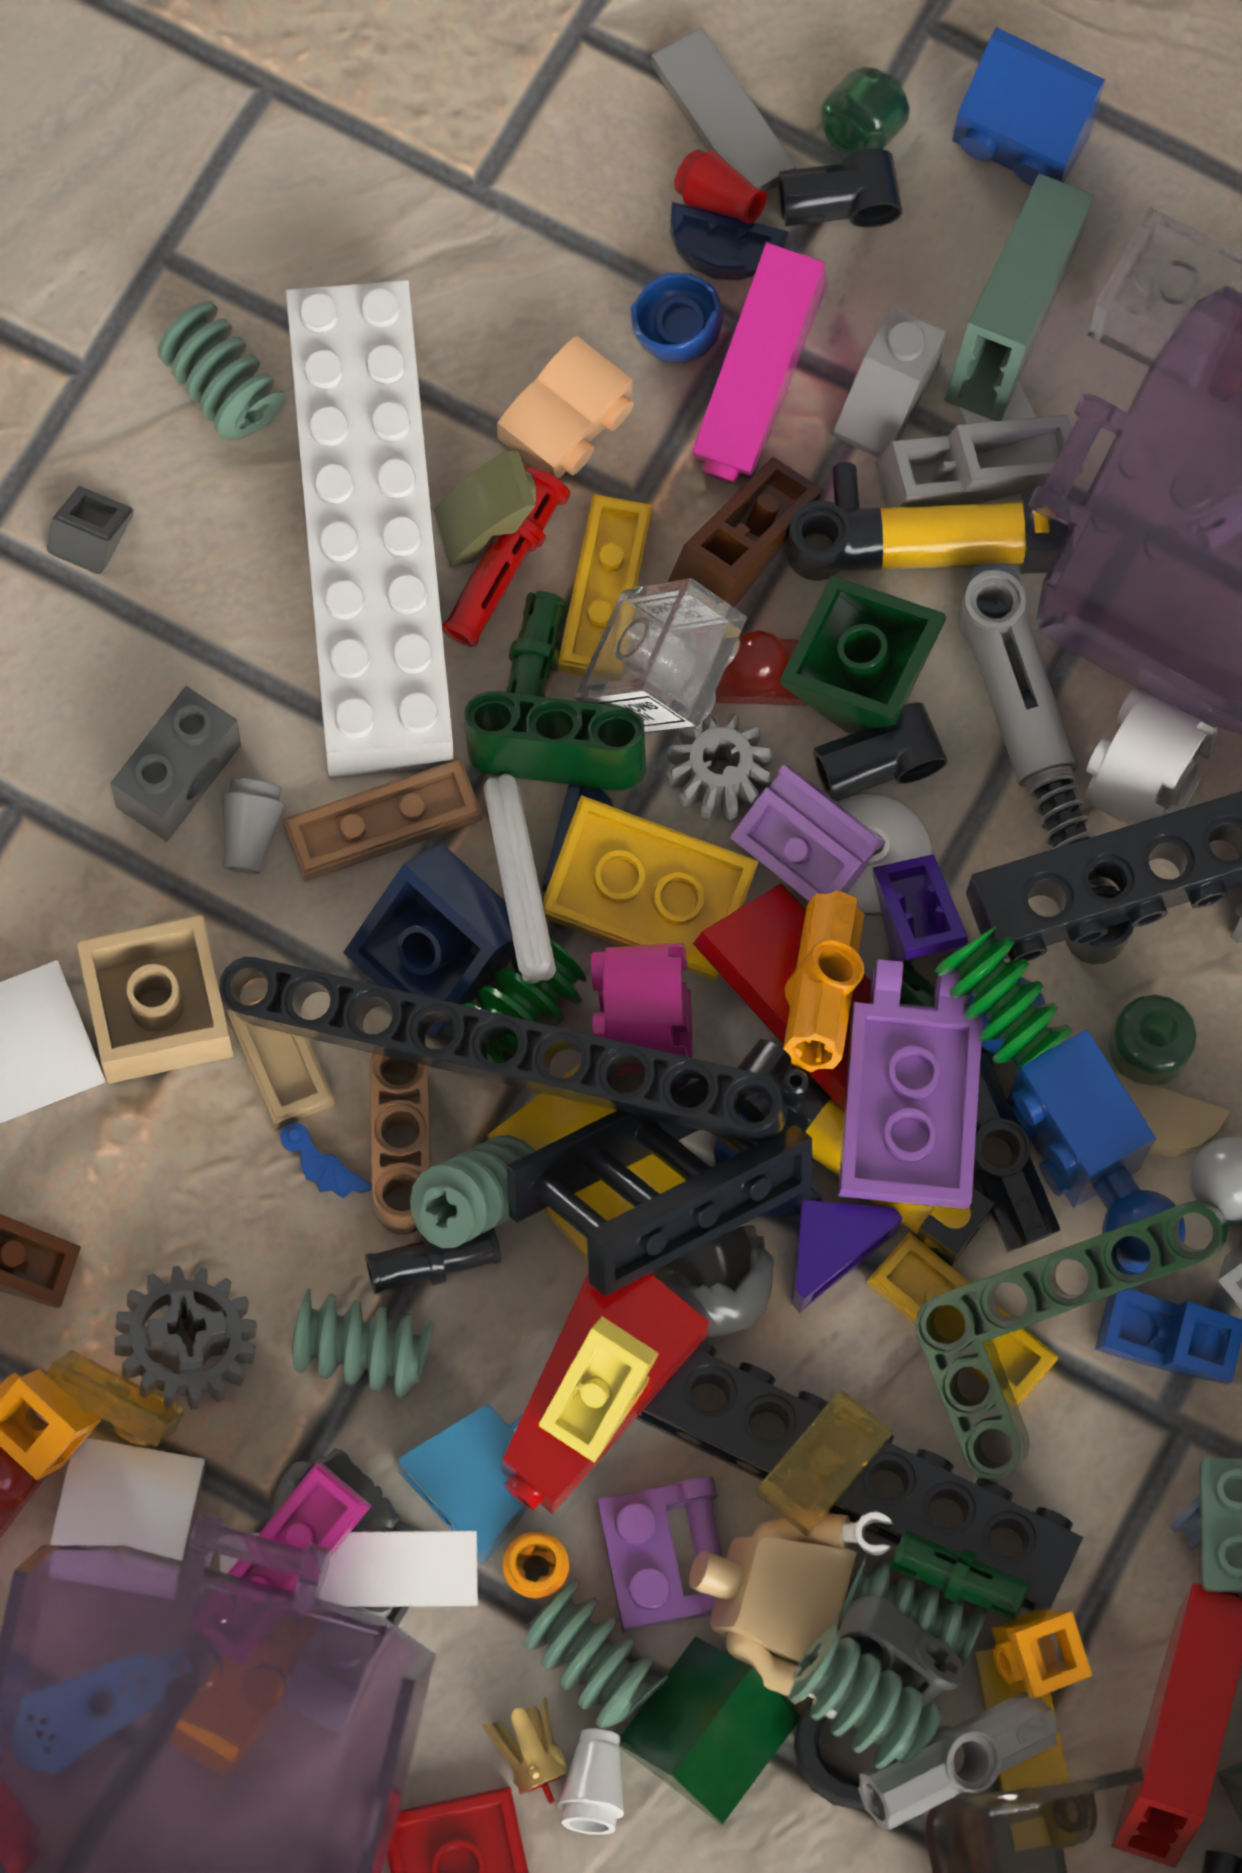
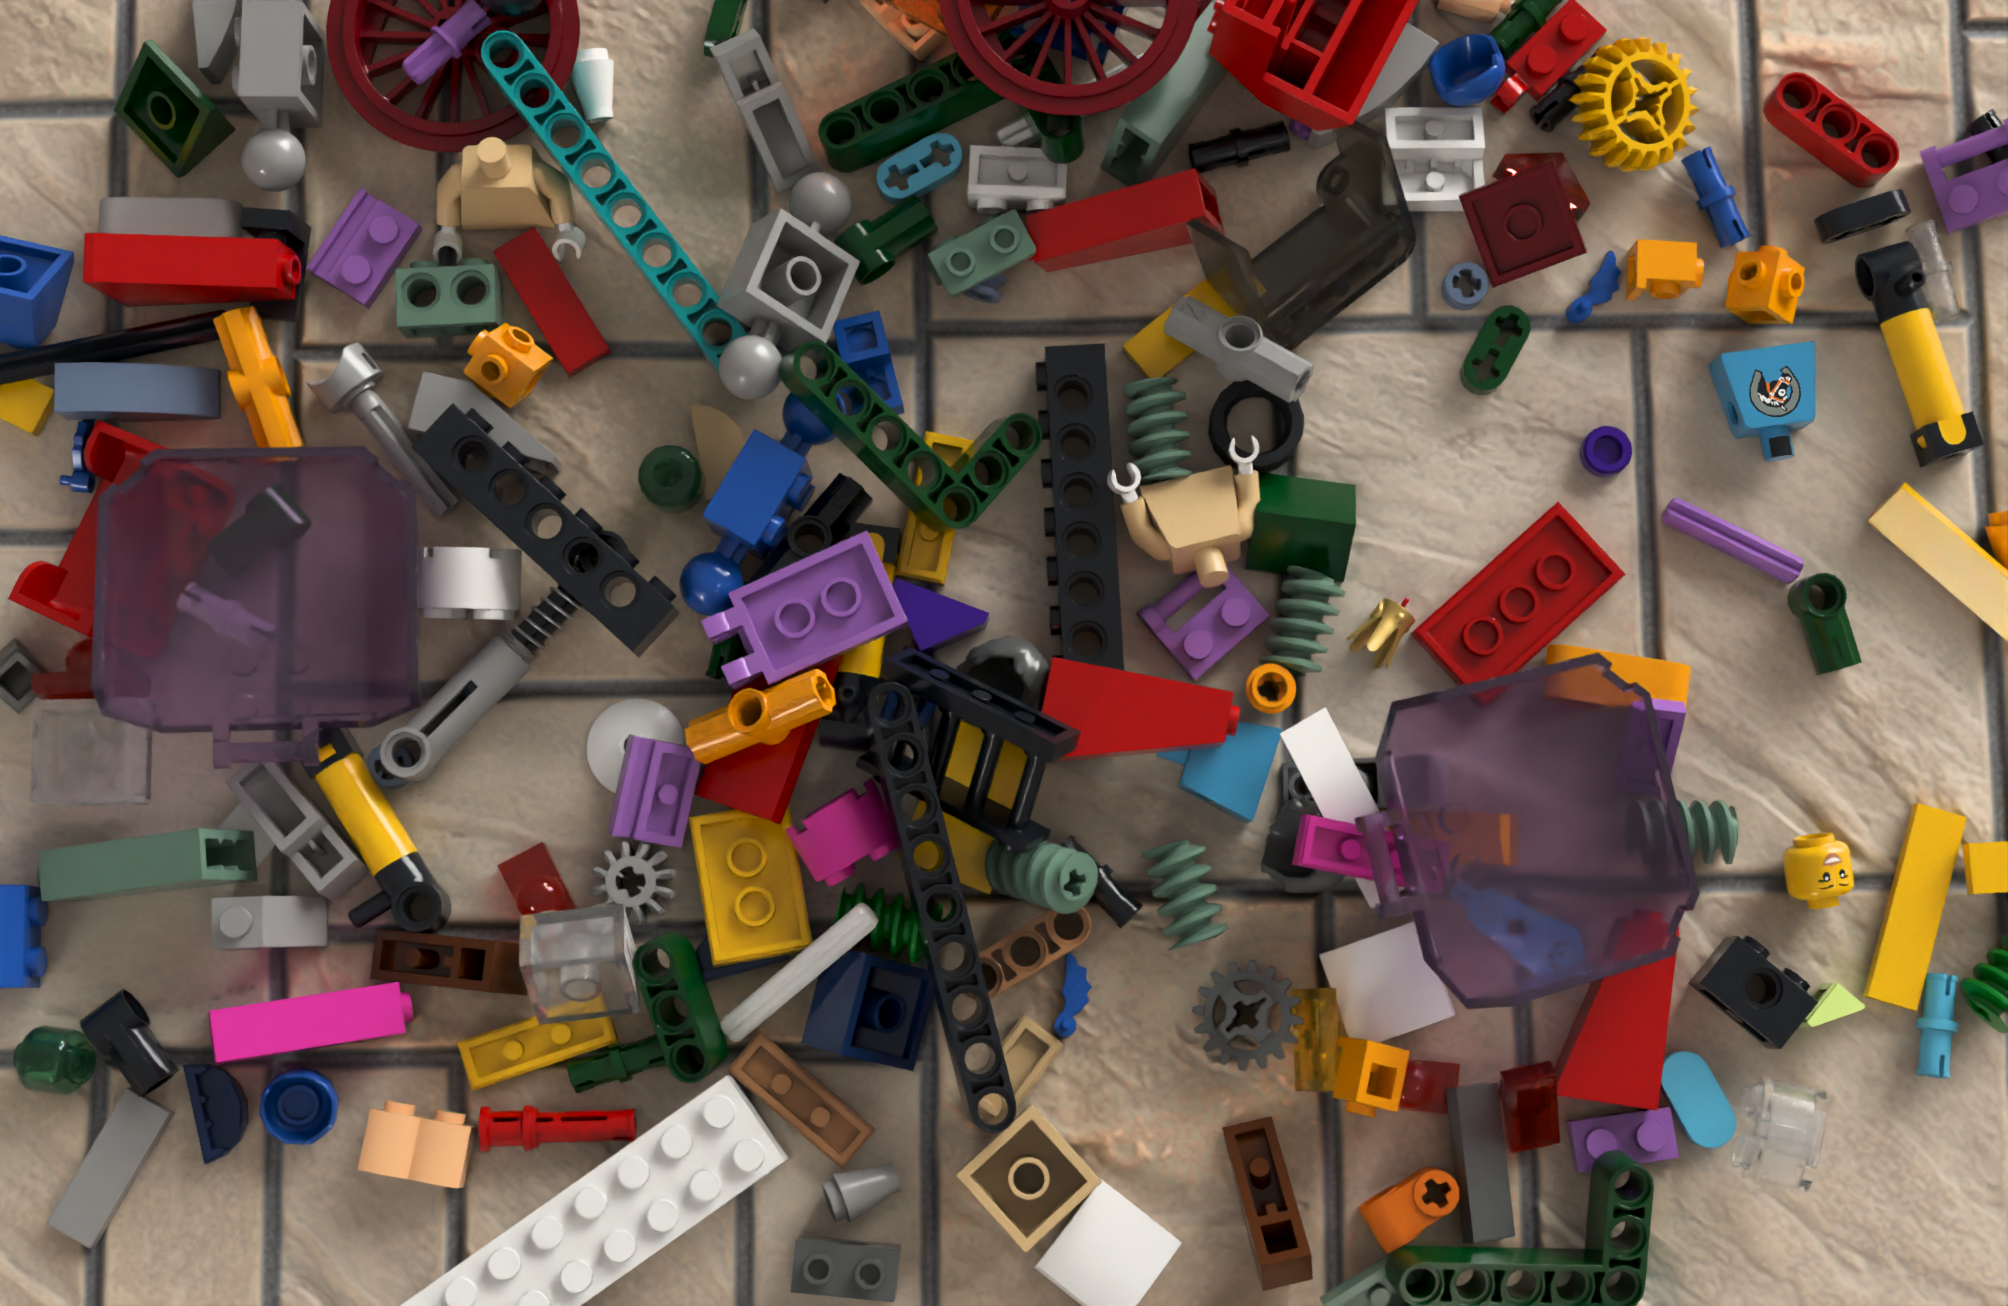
camera: 115 degrees left, 10 degrees up
(485, 505) = (530, 1157): olive slope -> none
(593, 1785) = (1380, 578): white cone -> none
(599, 1389) = (1148, 698): light yellow slope -> none
(716, 186) = (176, 1134): red cone -> none
(823, 1462) = (1097, 535): clear yellow plate -> none
(861, 655) = (496, 825): dark green slope -> none
(864, 1699) = (1248, 418): sand green piece -> none
(881, 754) = (551, 768): black piece -> none
(902, 1647) = (1201, 425): dark grey piece -> none
(917, 909) = (666, 685): dark purple slope -> none
(960, 1575) = (1120, 408): dark green pin -> none
(1003, 999) = (713, 577): green piece -> none
(1027, 1655) = (1147, 338): light orange brick -> none

